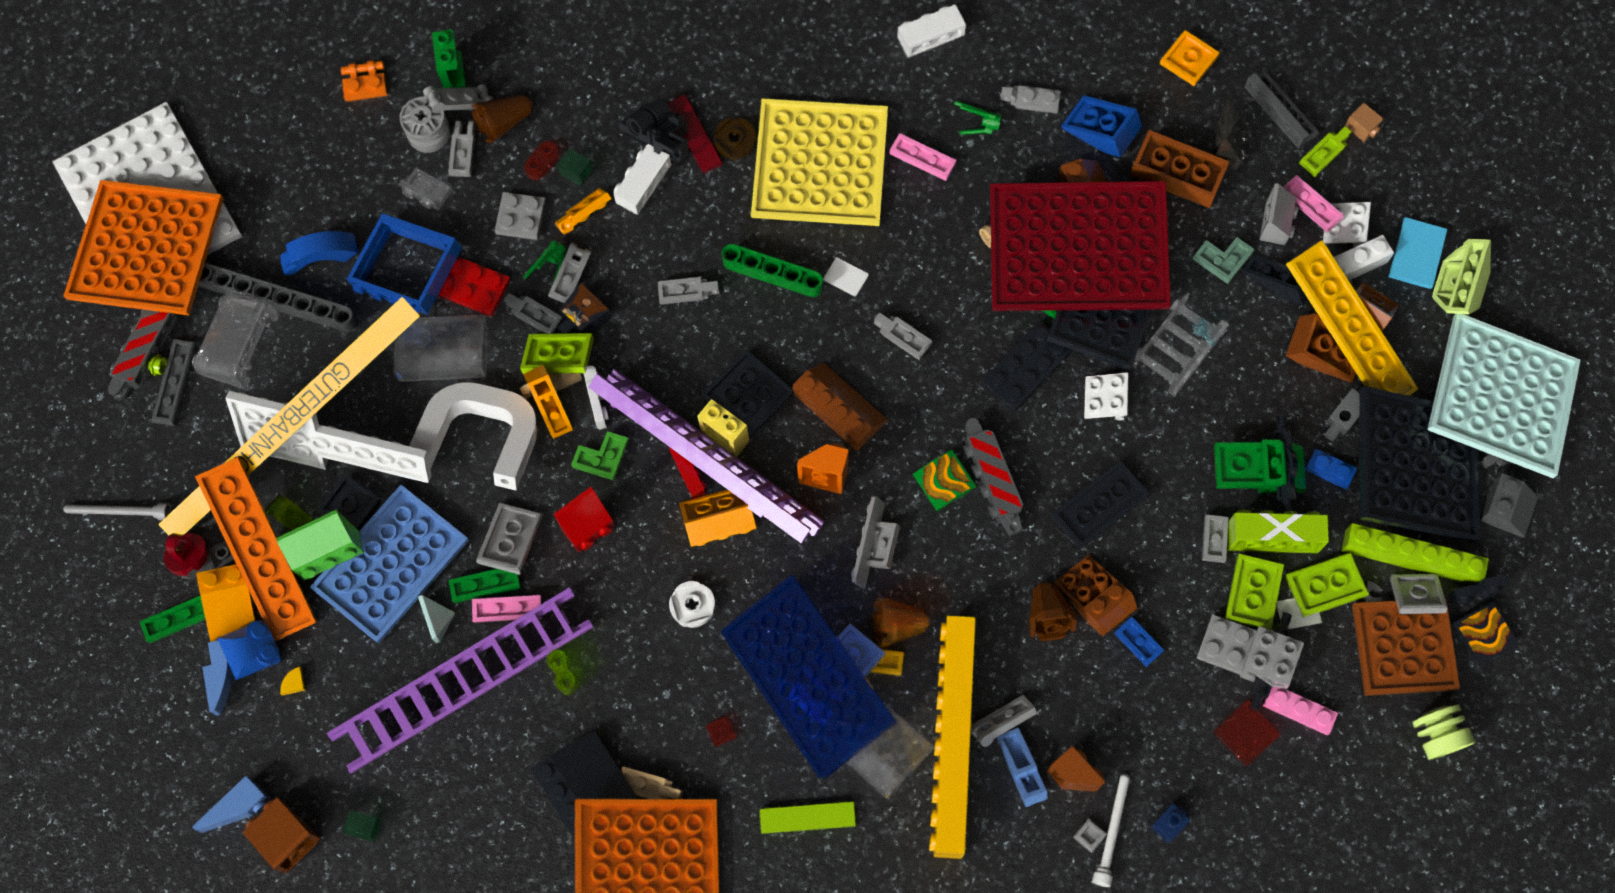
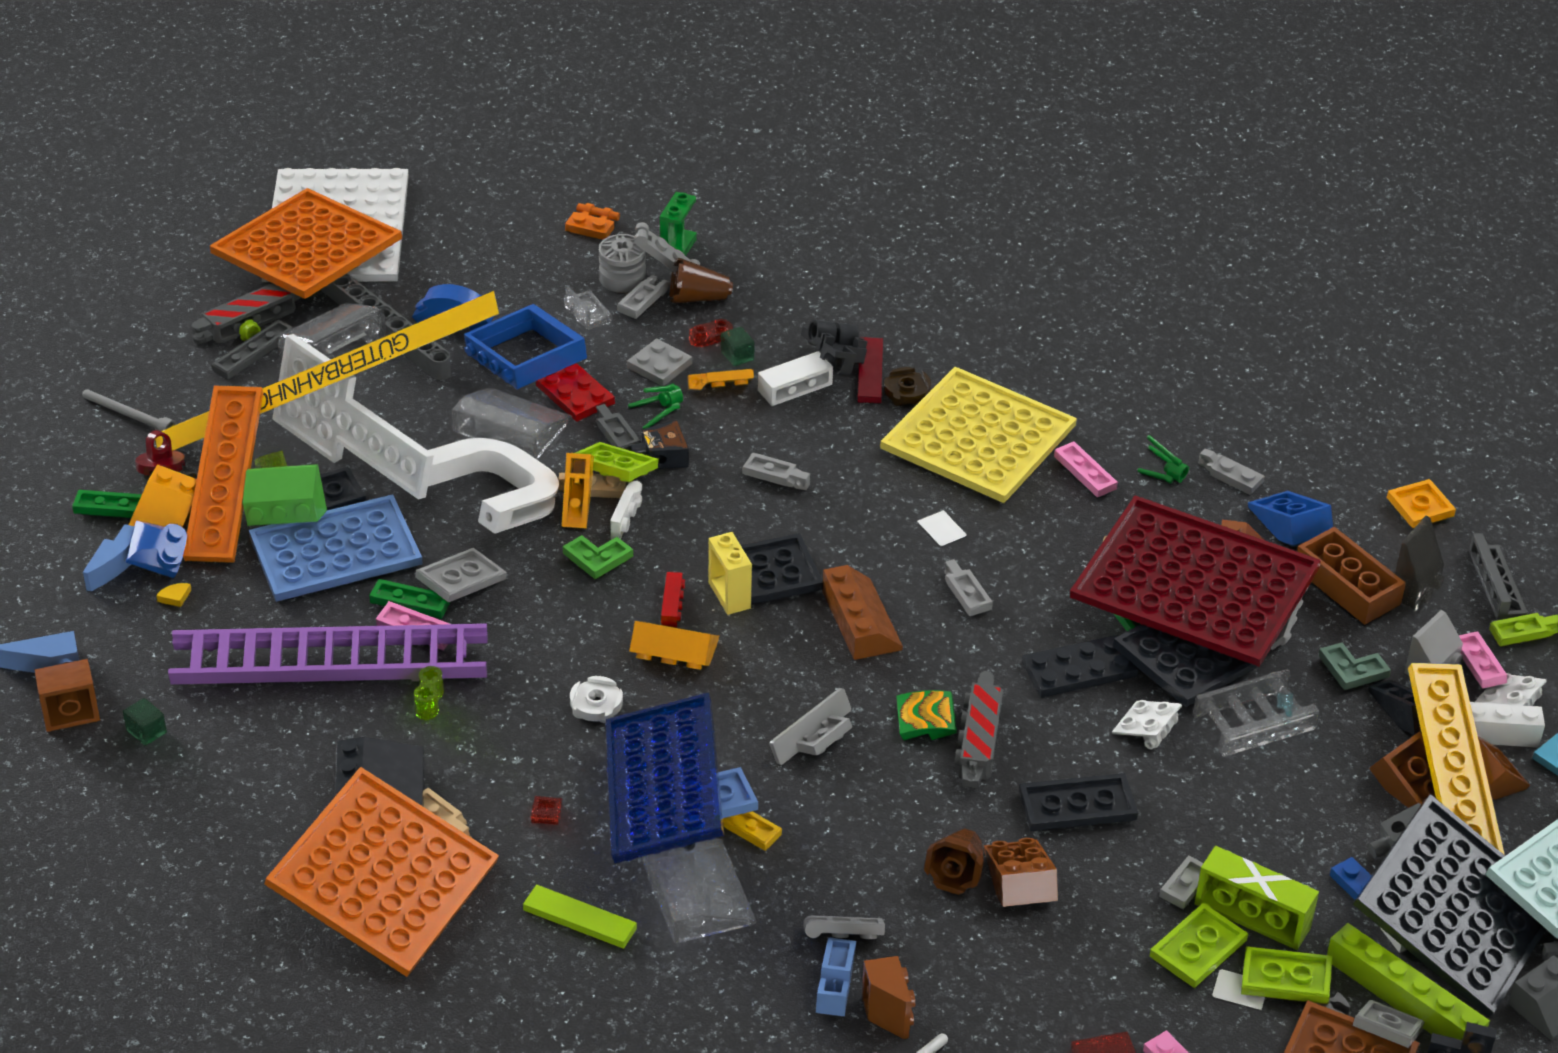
camera: 25 degrees right, 30 degrees down
(436, 616) = (344, 603): light aqua slope -> none
(569, 273) = (675, 411): light grey plate -> none
(584, 520) = (541, 578): red slope -> none
(706, 454) = (722, 627): ladder -> none
(778, 278) = (871, 489): green beam -> none
(825, 468) = (806, 638): orange slope -> none
(897, 622) = (792, 796): clear orange cone -> none
(931, 30) = (1161, 384): white brick -> none
(954, 737) = (777, 911): yellow brick -> none
(1139, 642) = (1040, 930): blue plate -> none
(1257, 656) = (1160, 991): light grey piece -> none
(1265, 465) = (1289, 838): green piece -> none

